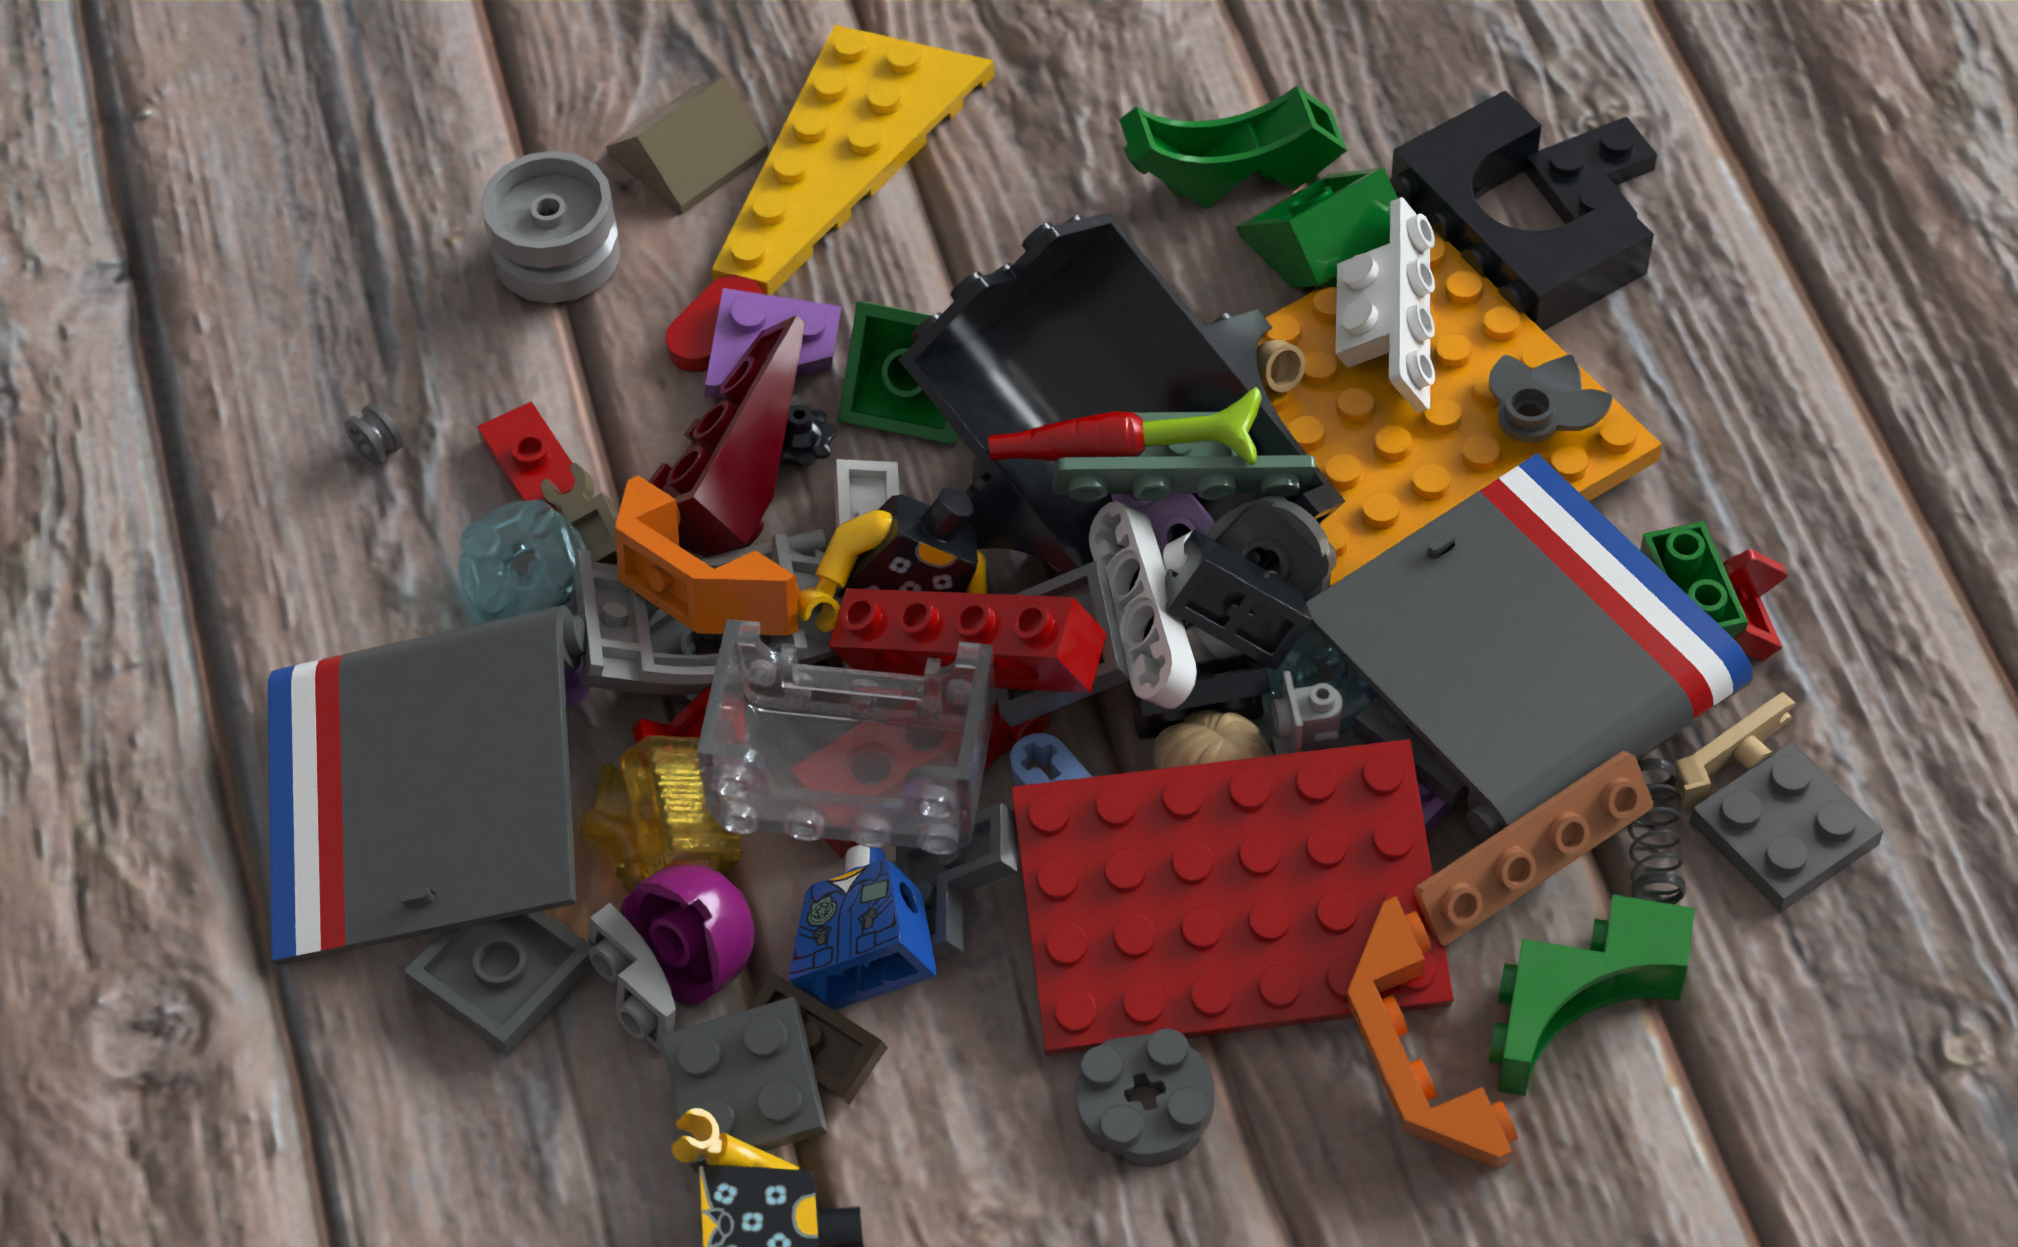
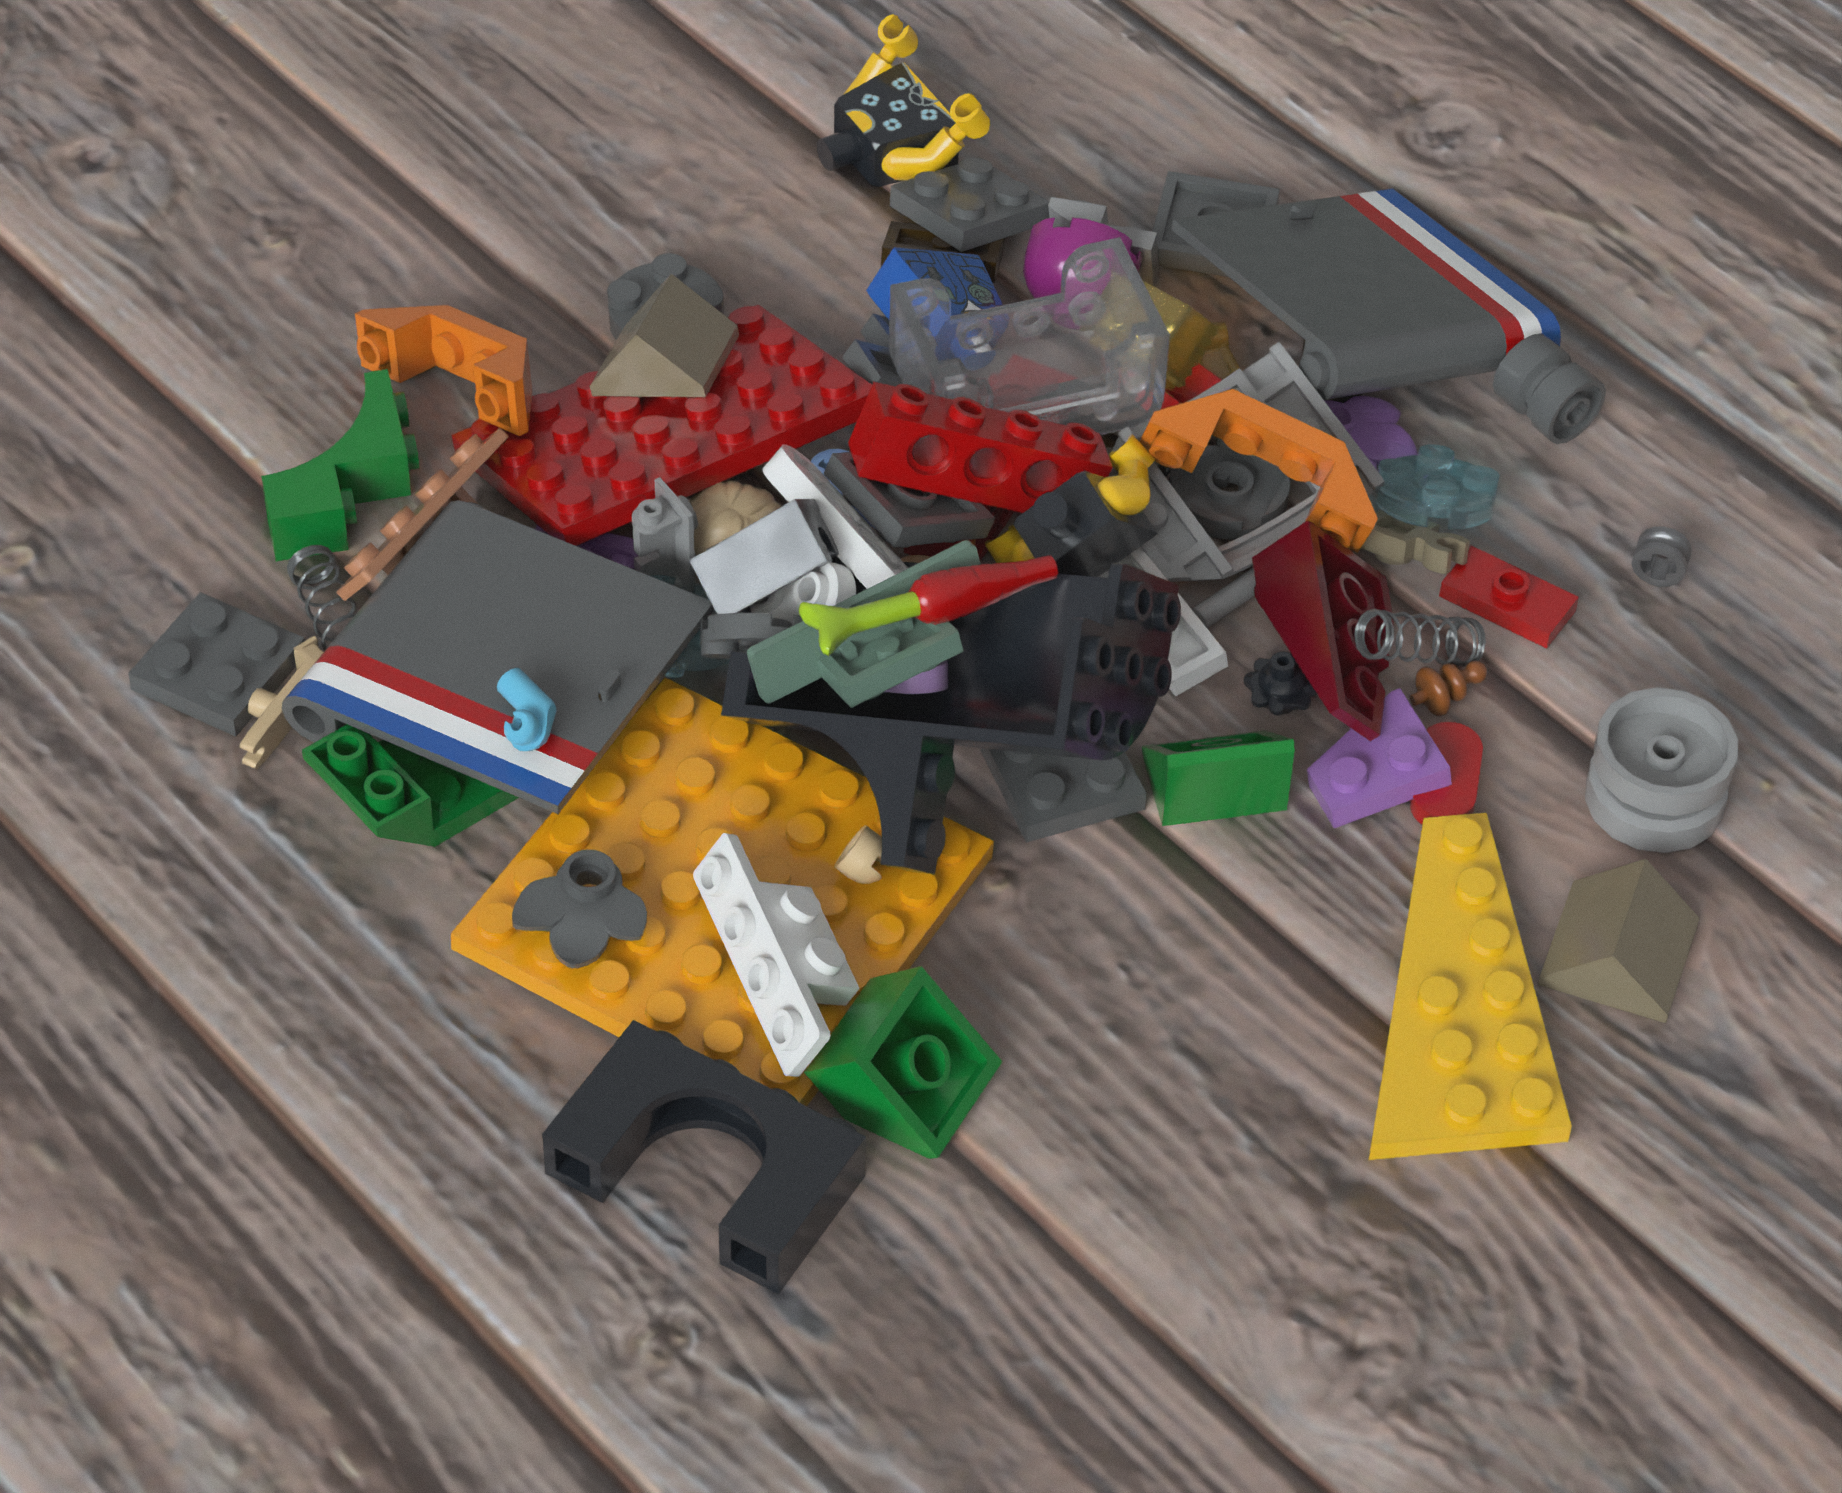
camera: 150 degrees right, 5 degrees down
(330, 612) = (1549, 388): none -> dark grey wheel
(621, 421) = (1449, 641): none -> dark grey piece
(649, 393) = (1437, 688): none -> dark orange hair
(1200, 956) = (668, 347): none -> dark tan slope
(1208, 158) = (1065, 1082): green arch -> none
(1531, 521) = (533, 712): none -> medium azure arm
(1586, 168) = (661, 1248): black plate -> none
(1751, 578) = (312, 813): red bracket -> none

